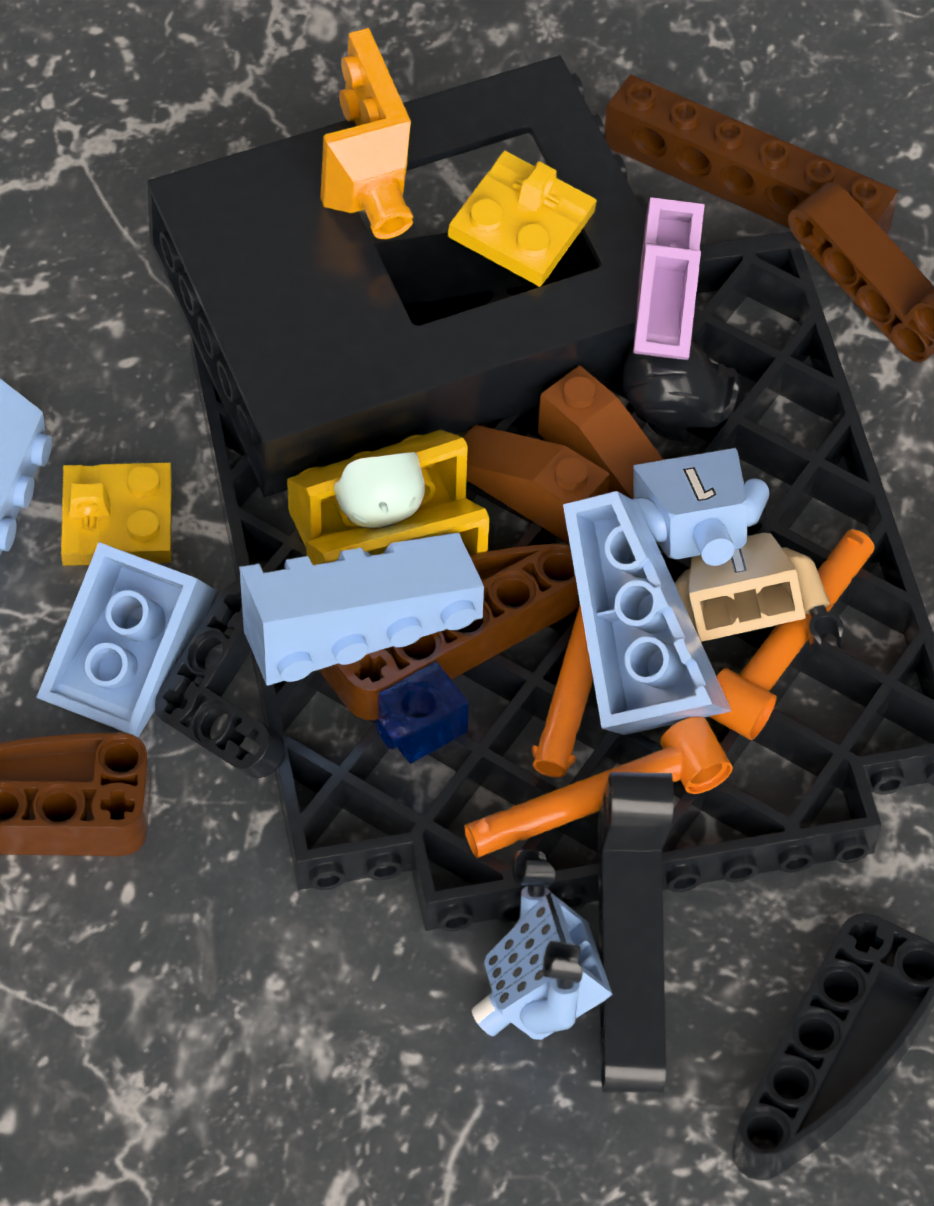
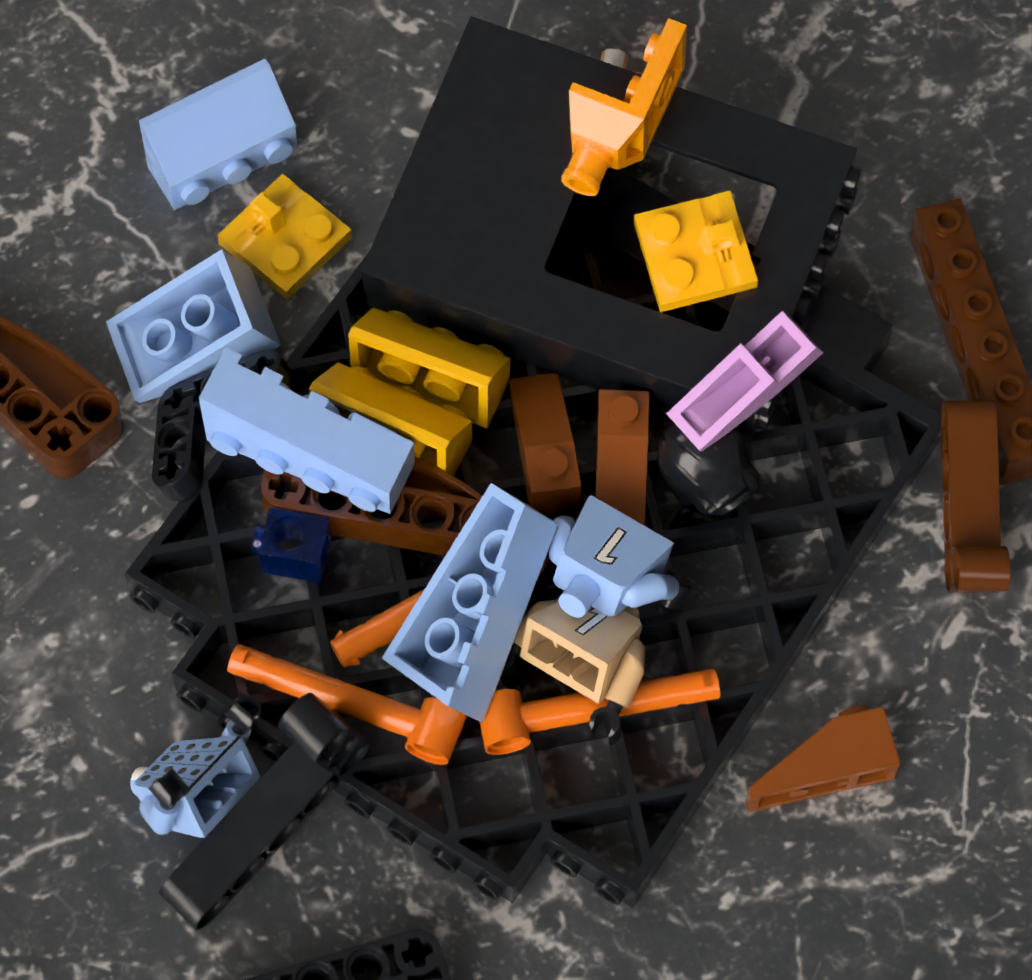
camera: 45 degrees right, 10 degrees up
(381, 489) = (396, 370): light aqua helmet -> none

